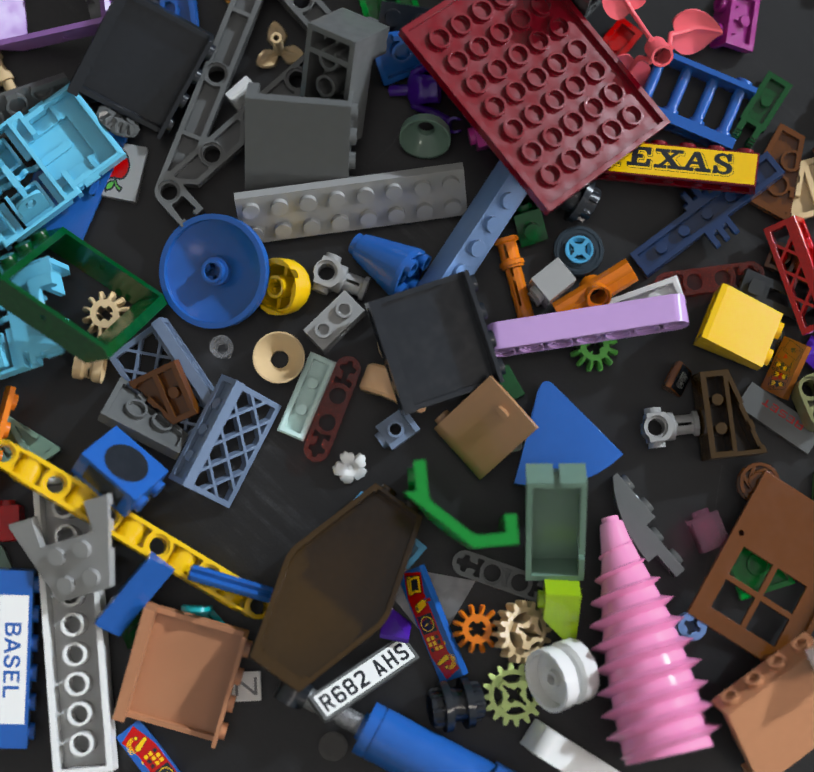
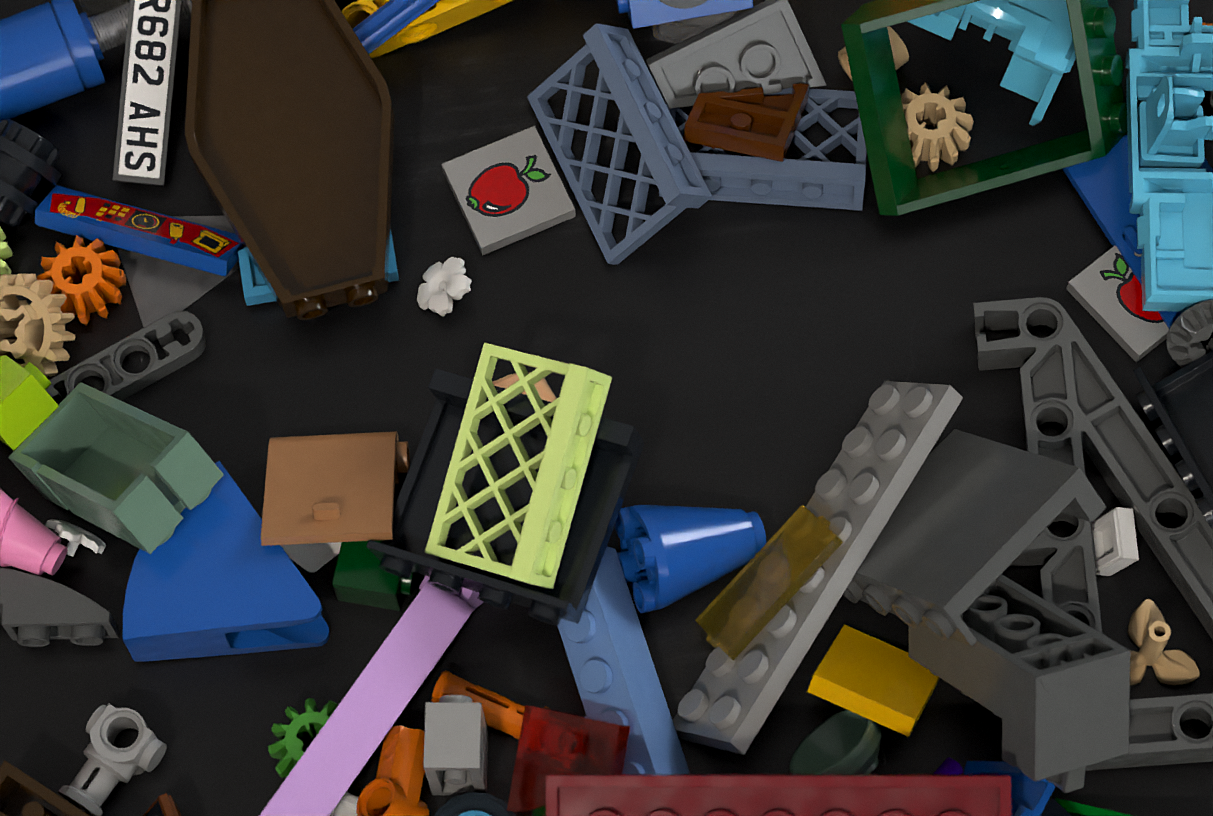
camera: 135 degrees right, 15 degrees down
(214, 271) = (873, 303): blue dish -> none
(221, 339) = (756, 230): clear hose -> none
(273, 343) = (676, 279): tan piece -> none
(281, 478) = (508, 190): none -> light grey tile
(287, 287) = (770, 377): yellow cylinder -> none
(306, 396) = (592, 306): light aqua tile -> none
(329, 408) = (540, 327): clear red beam -> none
(334, 322) = (663, 412): light grey brick -> none
(341, 280) = (718, 470): light grey connector -> none
(377, 214) = (768, 581): none -> clear yellow piece
(384, 141) = (873, 680): none -> yellow tile
(396, 628) = (176, 180): dark purple slope -> none
(408, 430) = (442, 356): sand blue brick -> none
(413, 317) = (559, 473): none -> yellowish green fence
(448, 525) = (237, 321): green panel -> none
(520, 233) = (562, 744): none -> clear red wing
(591, 526) = (76, 536): none -> white plant

